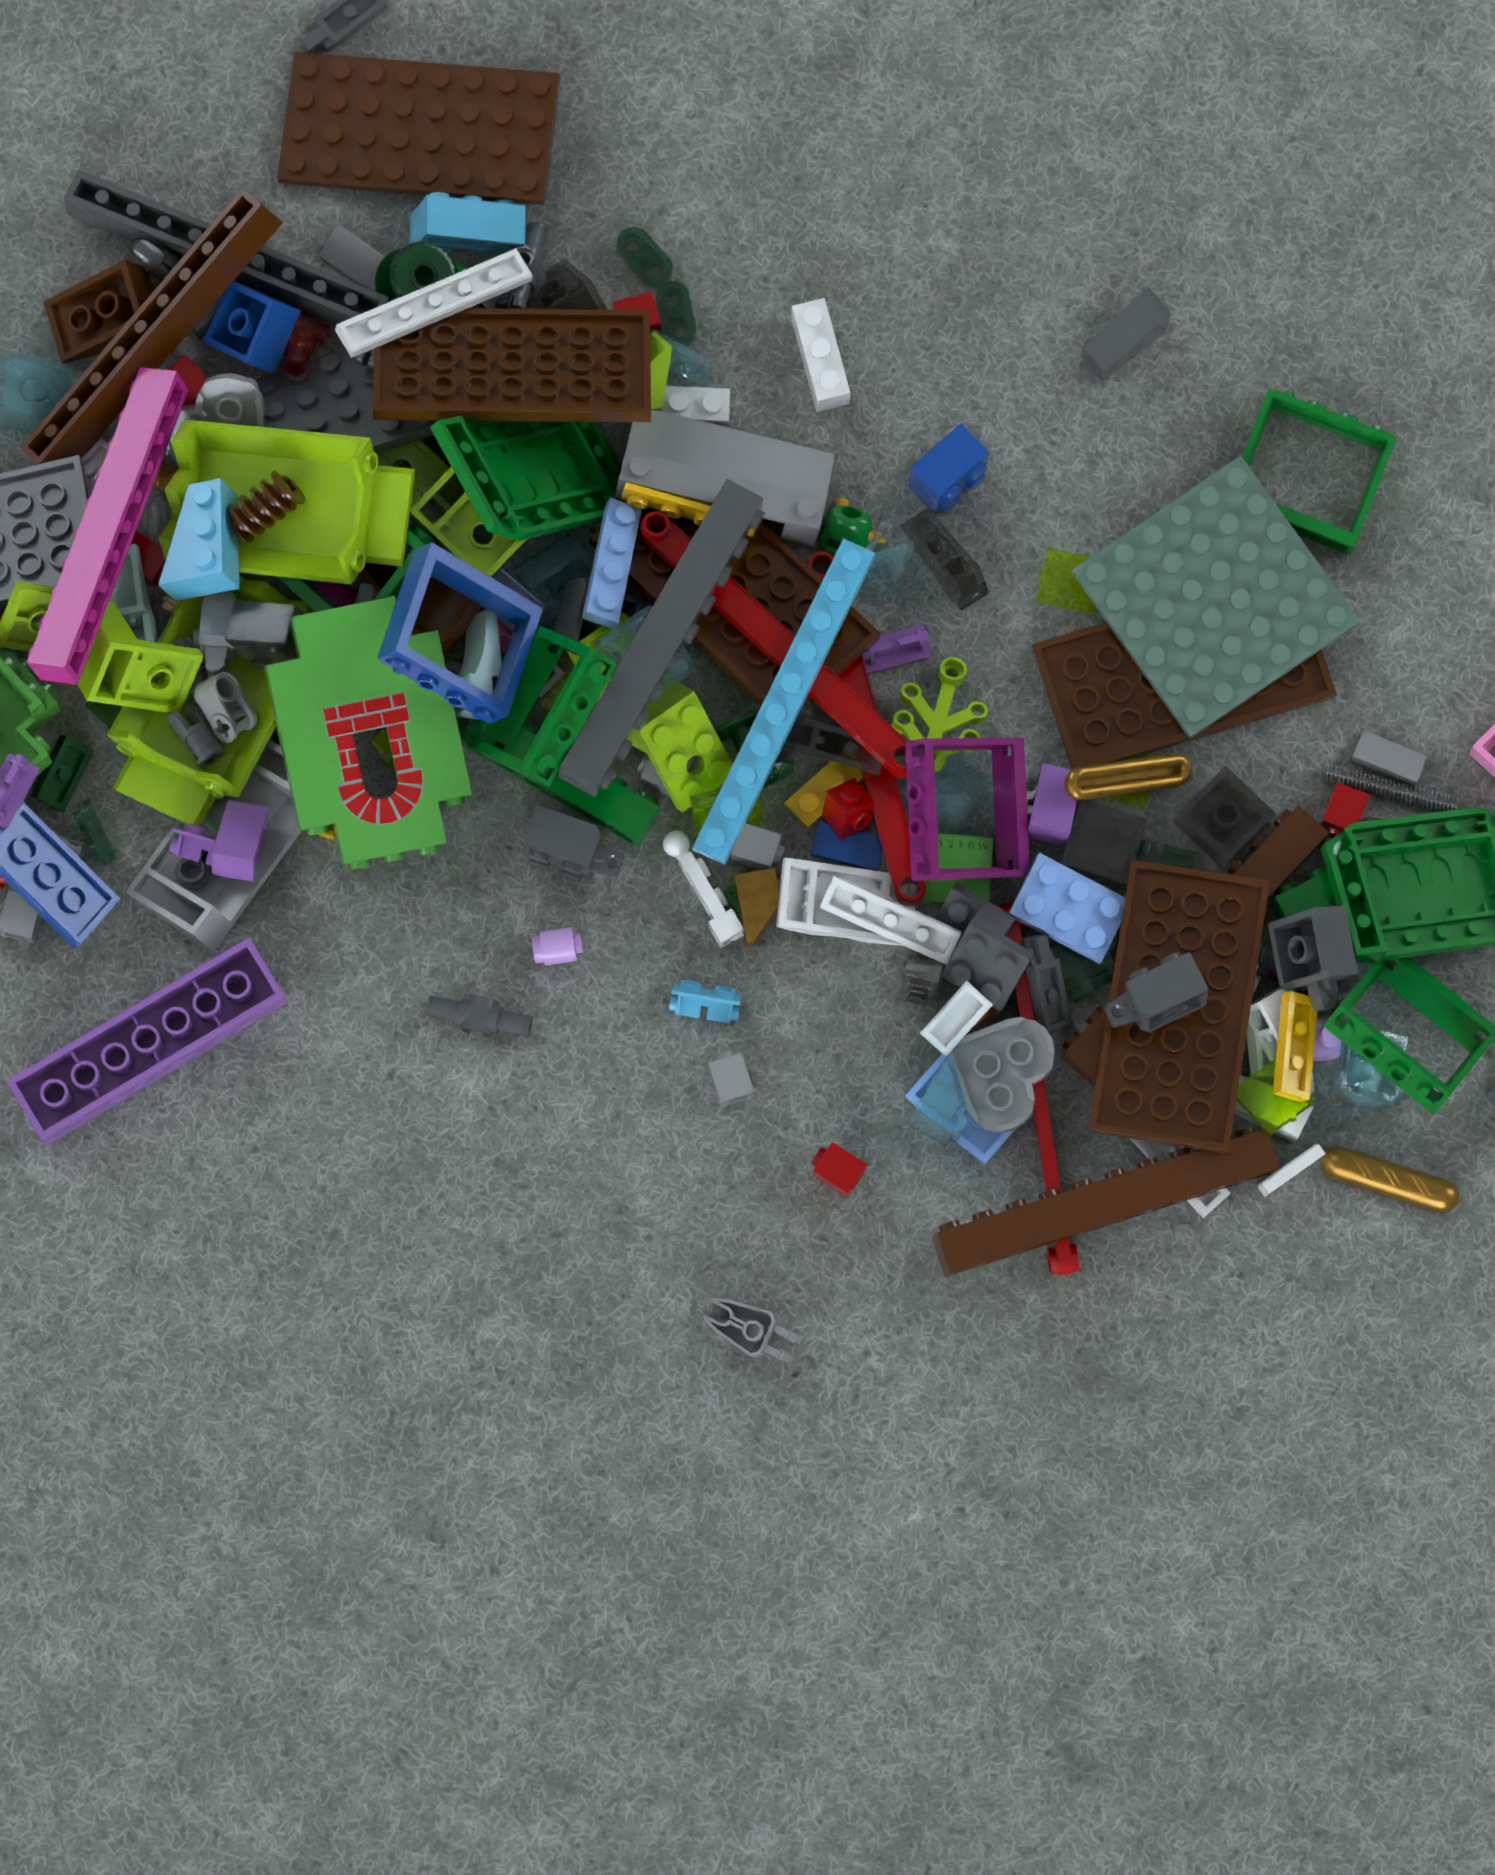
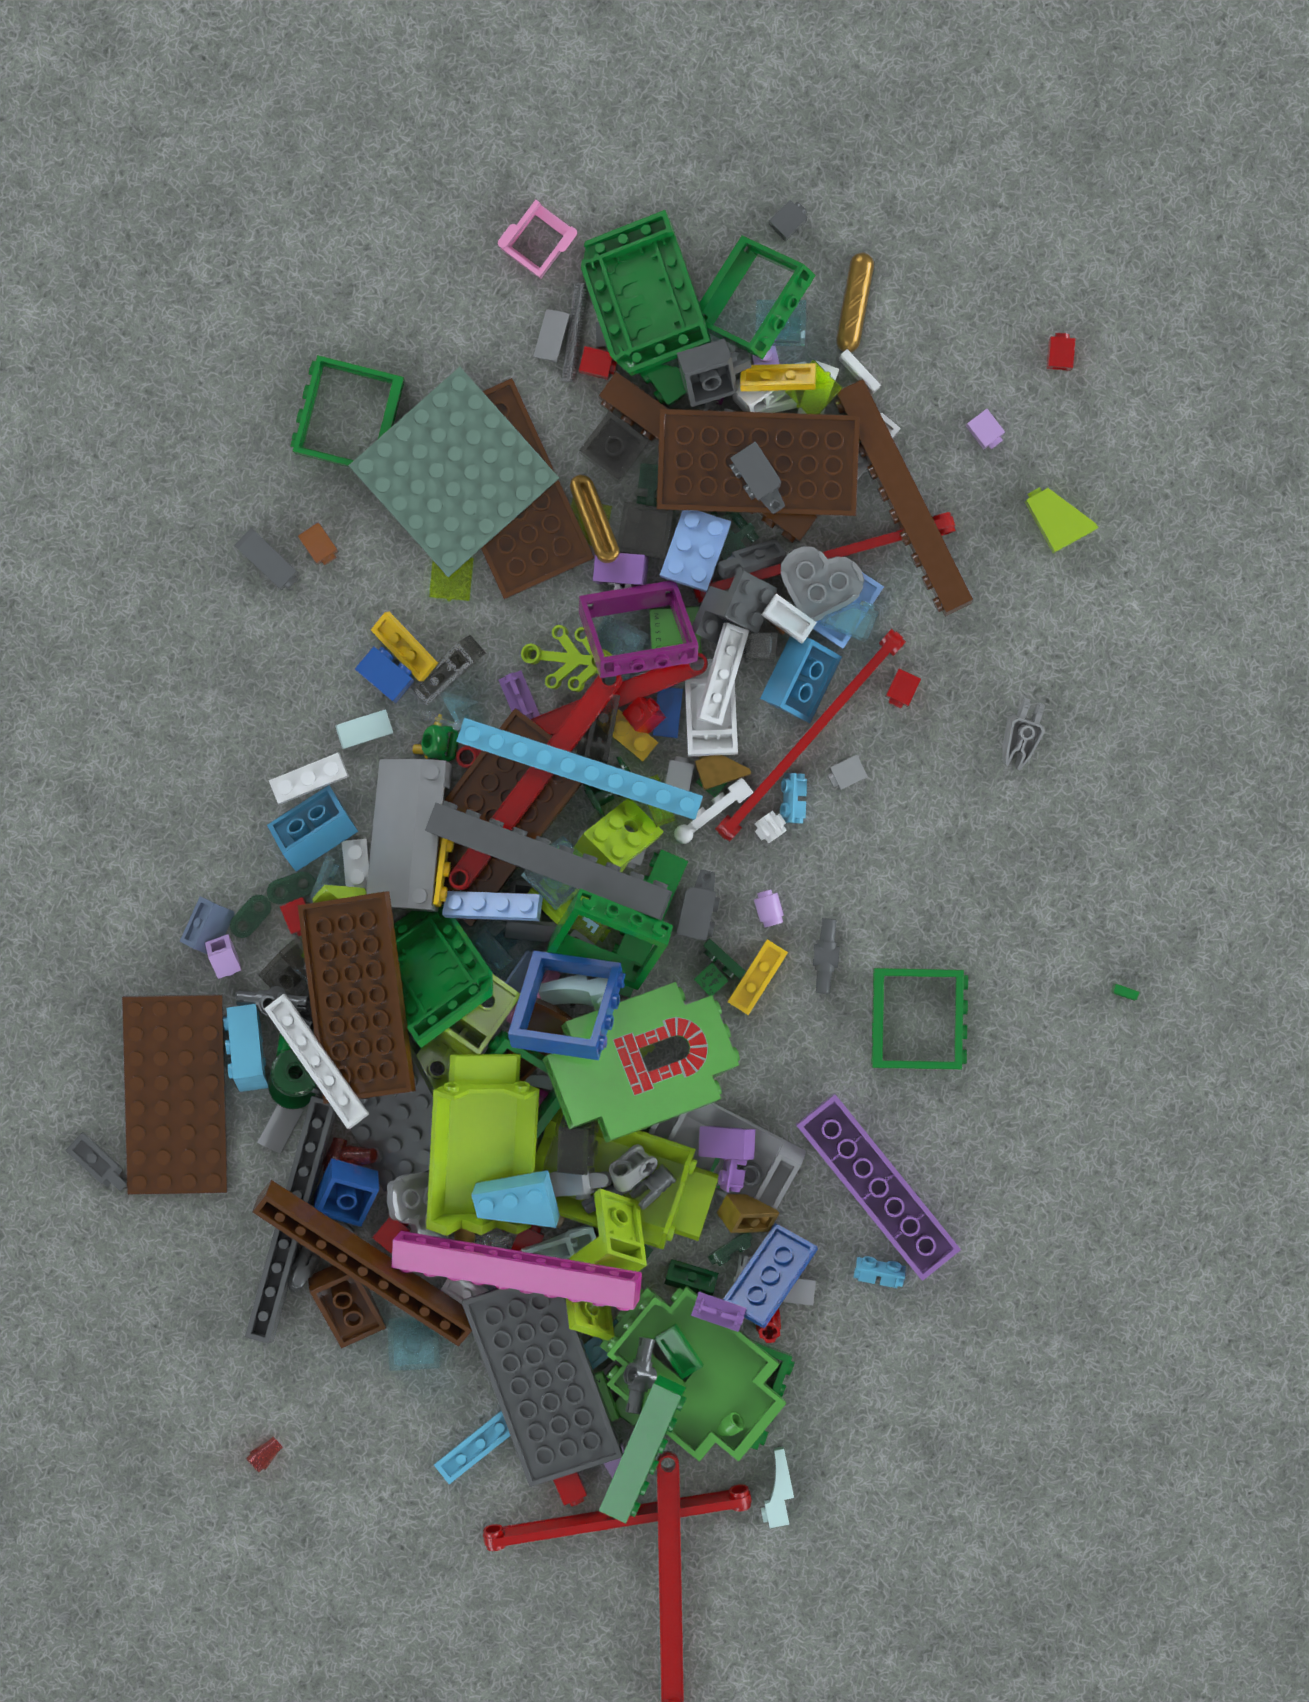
camera: 100 degrees left, 10 degrees up
(36, 1017) = (891, 1272): none -> medium azure hinge
(138, 858) = (746, 1214): none -> pearl gold slope
(265, 506) = (486, 1160): reddish brown piece -> none
(368, 1425) = (1125, 992): none -> green tile
(380, 1074) = (960, 1031): none -> green window
(464, 918) = (757, 977): none -> yellow plate
(469, 856) = (711, 979): none -> green tile
(505, 866) = (714, 952): none -> dark green plate
(595, 212) = (223, 956): none -> lavender brick
(637, 199) = (206, 923): none -> sand blue panel
(669, 962) = (770, 827): none -> white gear
(751, 351) = (312, 828): none -> dark azure slope
(870, 1033) = (801, 678): none -> dark azure slope
(878, 437) = (364, 729): none -> light aqua slope
(903, 1162) = (730, 826): none -> red piece
(984, 502) = (404, 646): none -> yellow plate
(1049, 1420) = (1057, 519): none -> lime slope
(1138, 406) = (319, 544): none -> dark orange slope
(1188, 1336) = (986, 430): none -> lavender brick
(1287, 1456) = (1061, 352): none -> red brick

